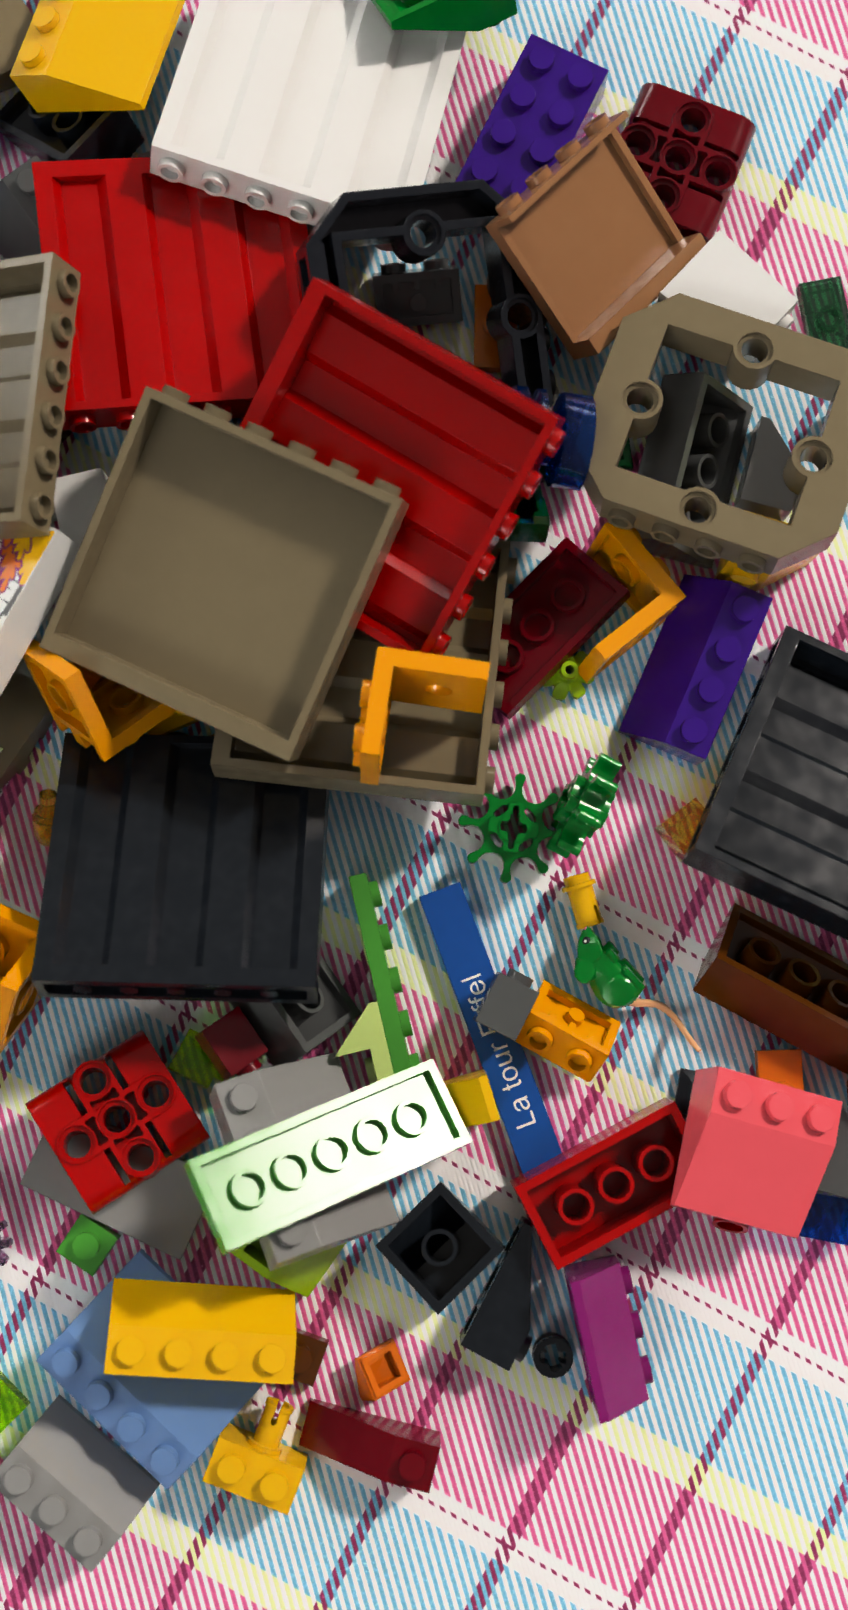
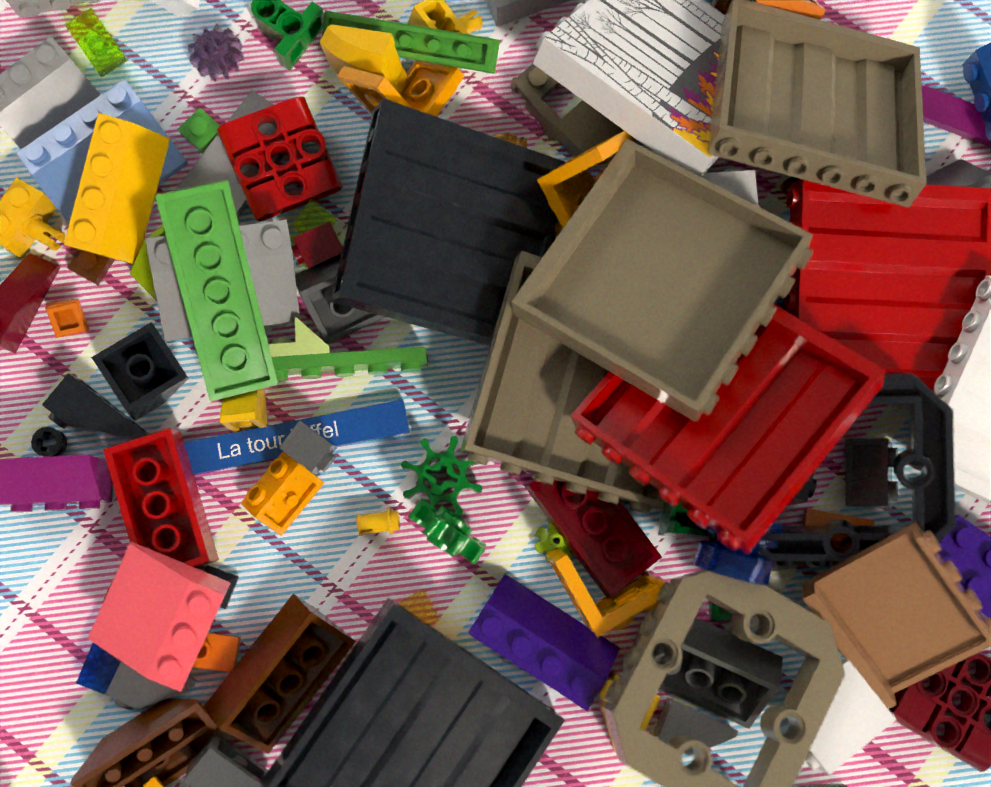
camera: 95 degrees right, 5 degrees down
(415, 680) = (563, 403): light orange bracket -> none
(615, 980) = (312, 536): green animal -> none

